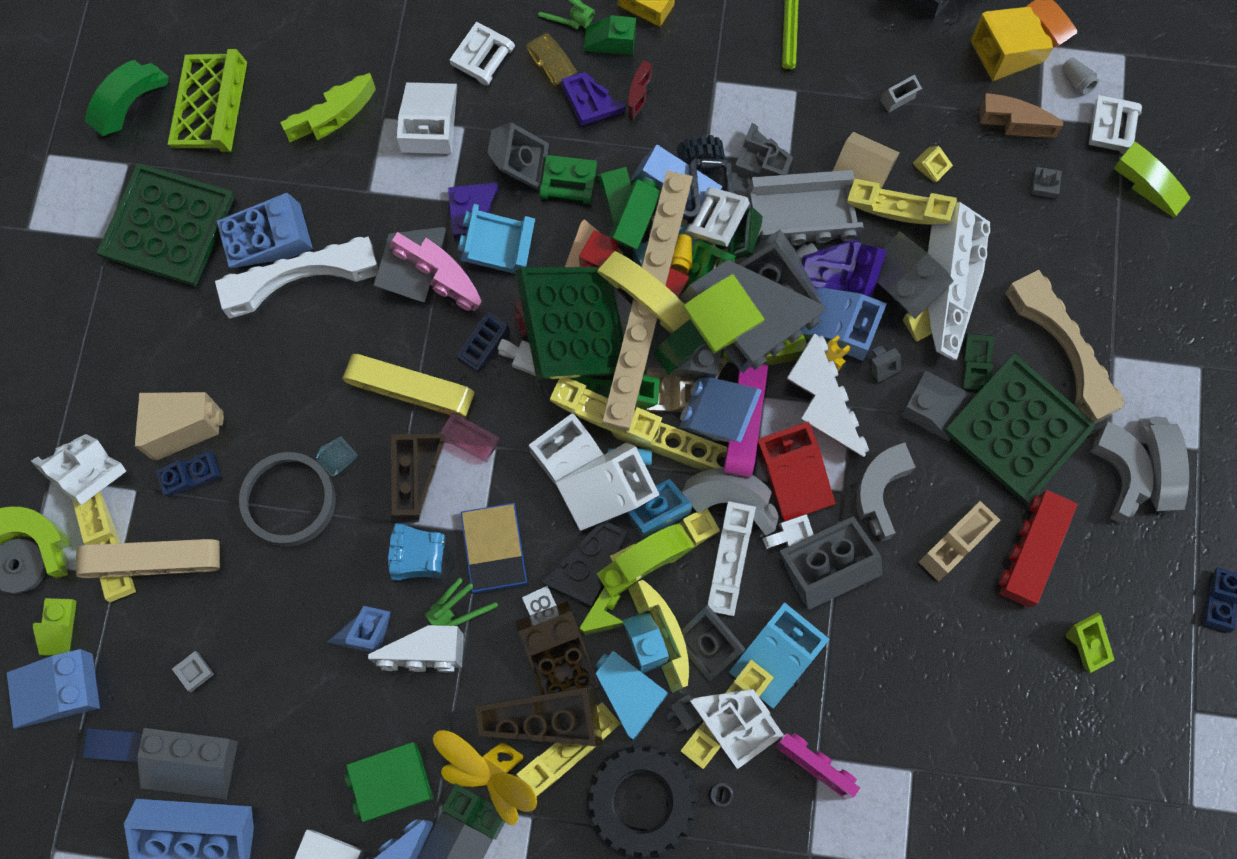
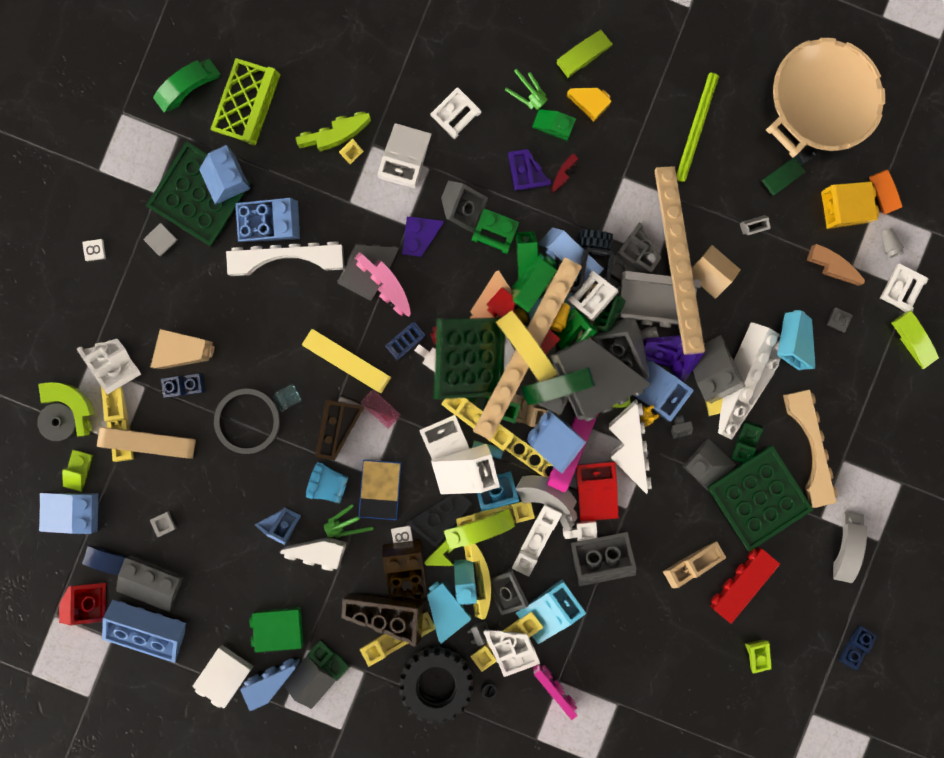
camera: 15 degrees right, 15 degrees up
(36, 327) = (94, 250): none -> white tile
(92, 816) = (83, 604): none -> red slope
(124, 292) = (160, 239): none -> light grey piece
(192, 183) = (223, 175): none -> medium blue slope
(357, 127) = (351, 151): none -> light yellow slope
(472, 770) = (330, 633): yellow piece -> none
(495, 240) = (432, 268): medium azure panel -> none
(552, 58) = (506, 131): clear yellow slope -> none
(723, 313) = (573, 385): lime slope -> none
(819, 155) = (679, 260): none -> tan plate
(886, 467) = (648, 510): light grey arch -> none
(901, 206) = (729, 315): light yellow slope -> none
(917, 31) = (783, 176): none -> dark green slope
(933, 163) = (762, 284): light yellow slope -> none
(1002, 216) = (797, 341): none -> medium azure slope
(1132, 464) = (828, 544): light grey arch -> none

